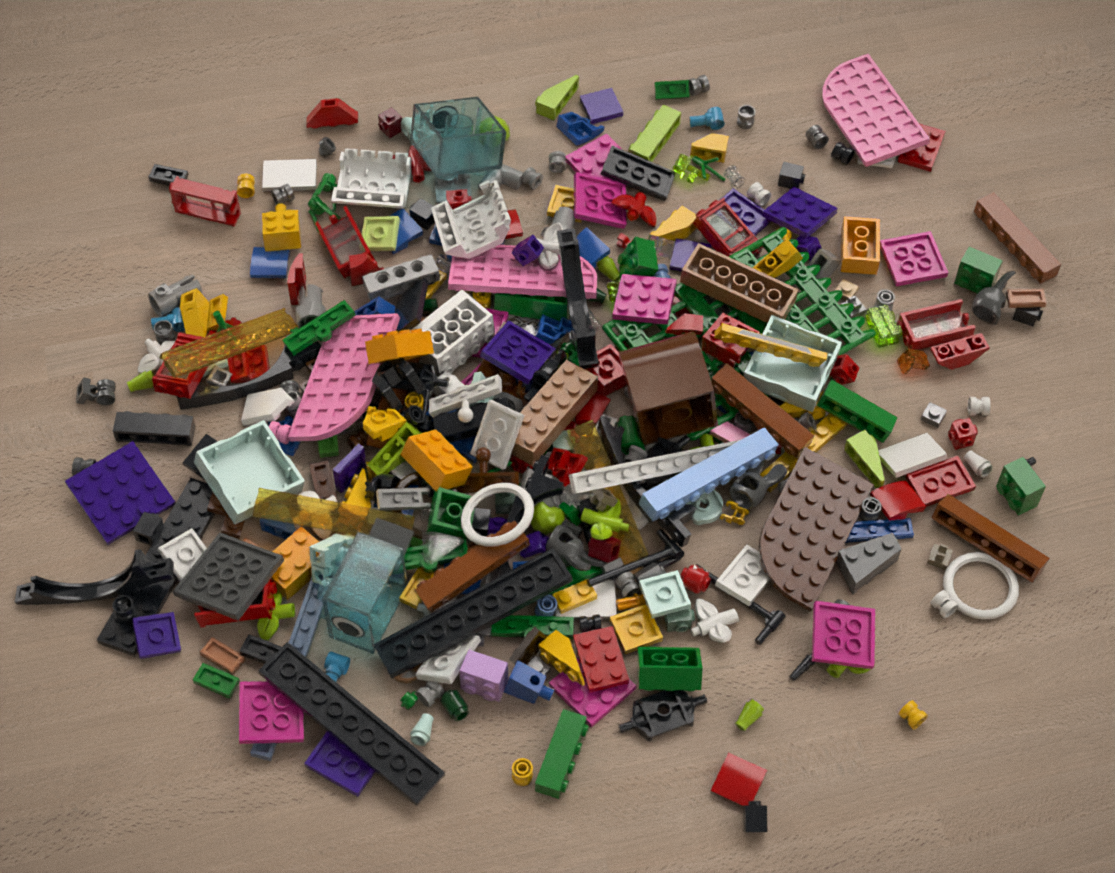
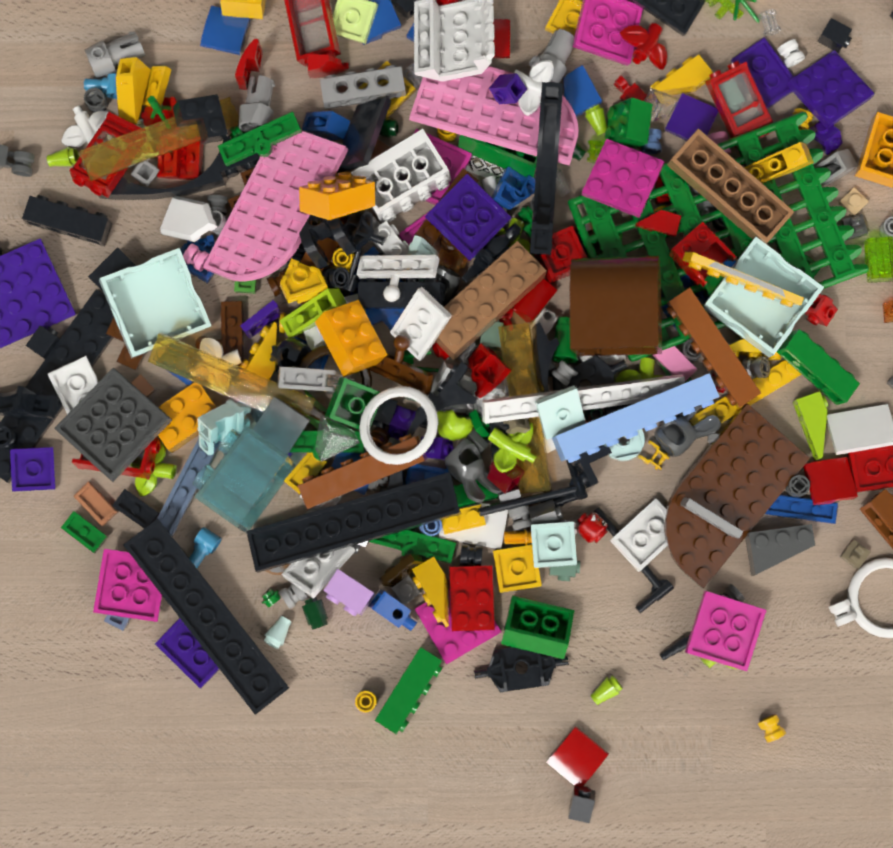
camera: 15 degrees right, 25 degrees up
(264, 316) = (205, 113): none -> black brick
(640, 475) = (560, 412): none -> light aqua plate
(713, 622) = (598, 579): white plant -> none
(801, 540) = (711, 518): none -> light grey tile

